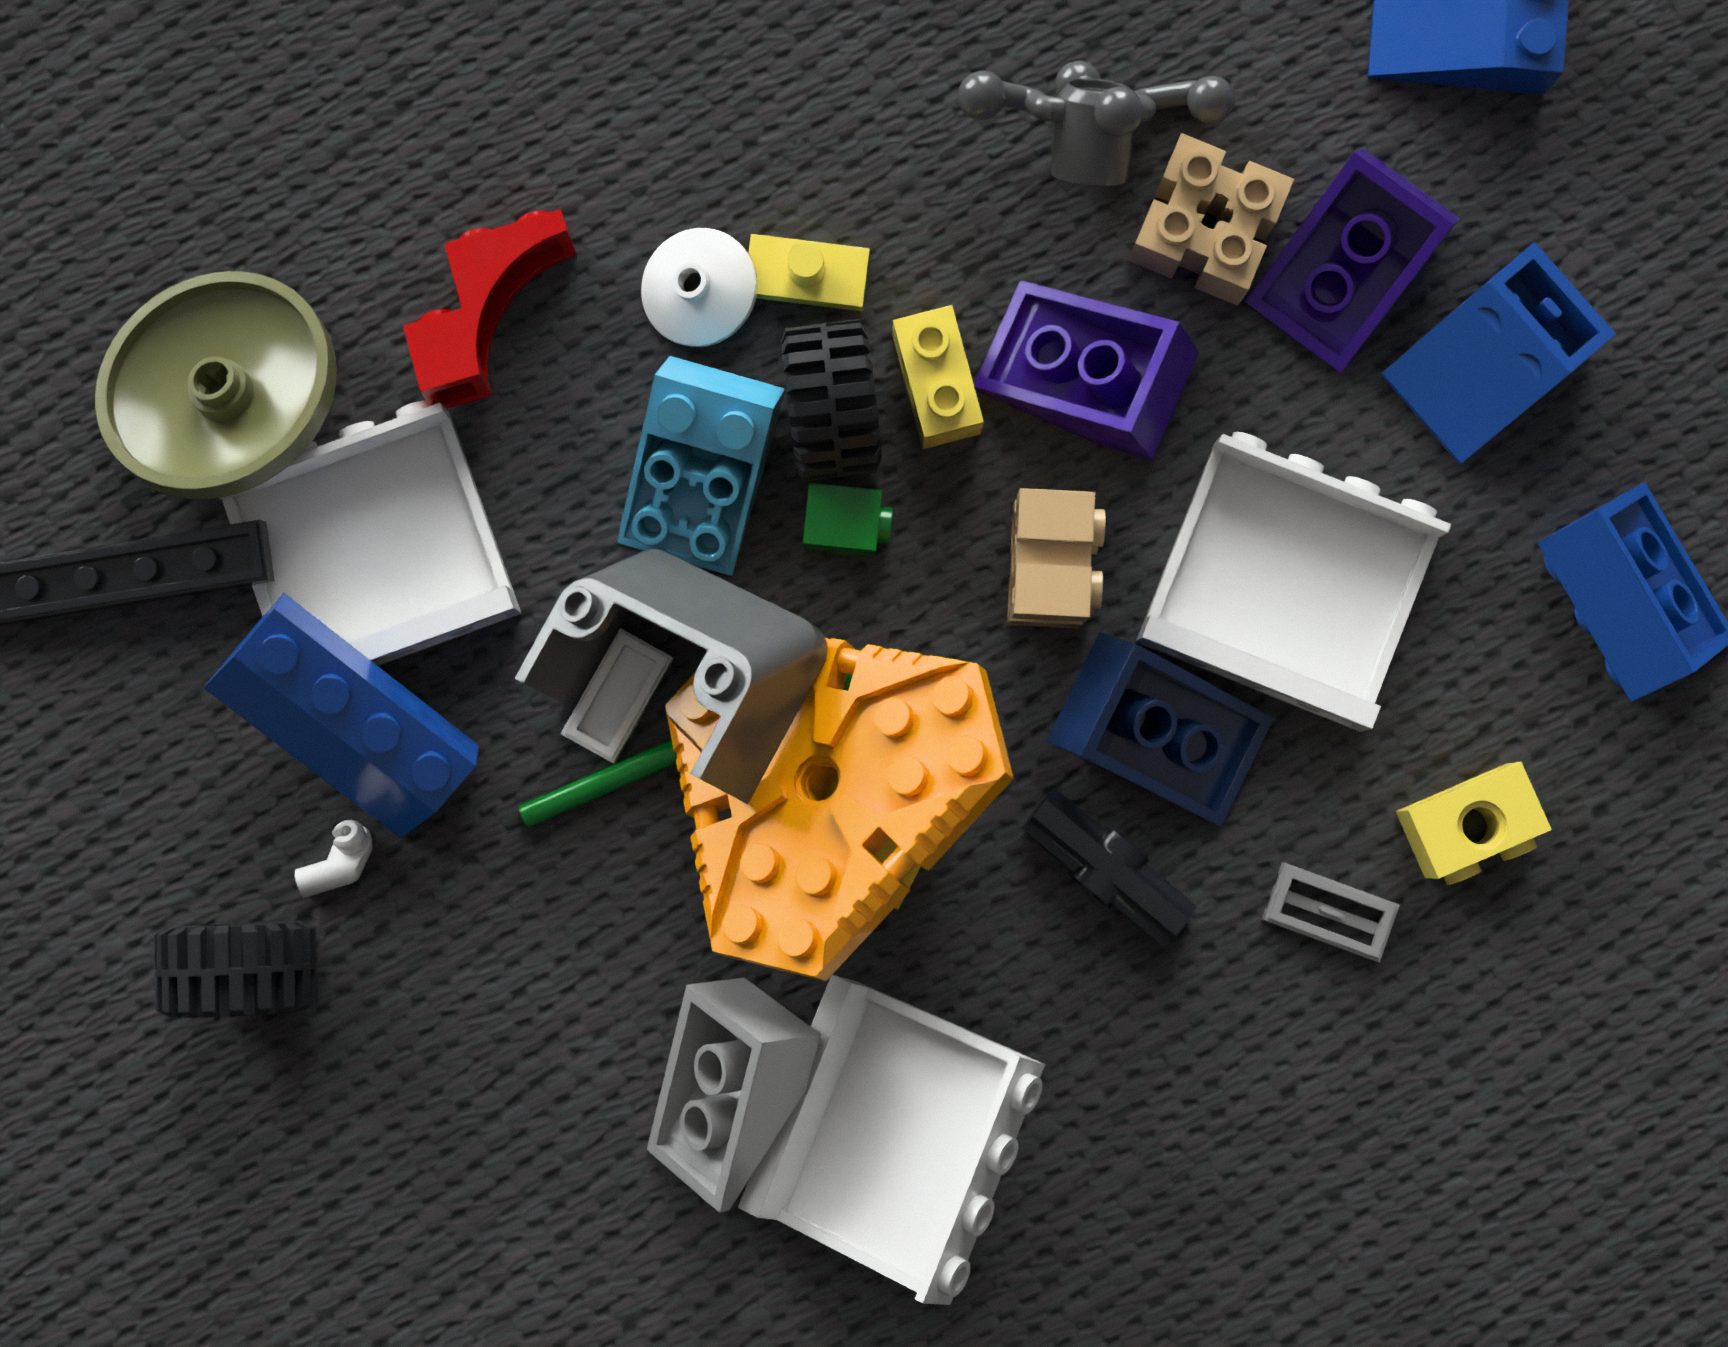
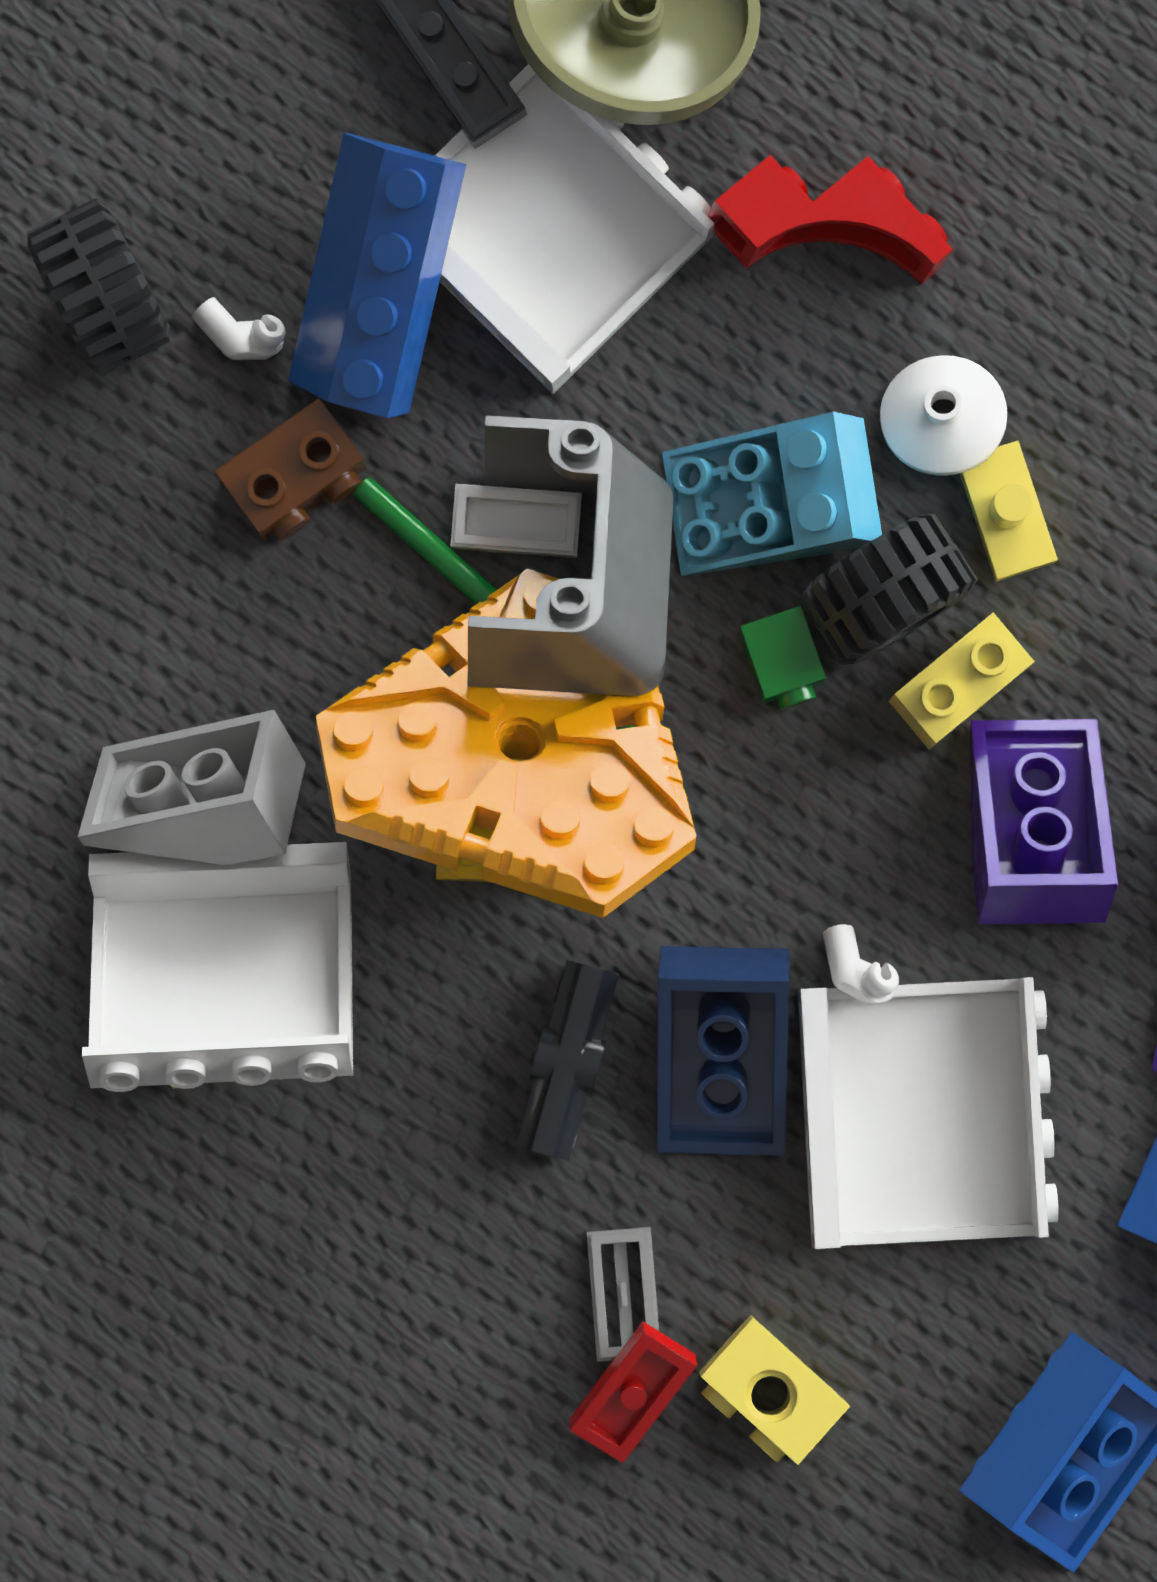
camera: 65 degrees right, 0 degrees up
(483, 870) = (293, 472): none -> reddish brown brick
(1052, 558) = (834, 868): tan brick -> none
(1149, 585) = (853, 975): none -> white arm
(1422, 943) = (633, 1392): none -> red plate

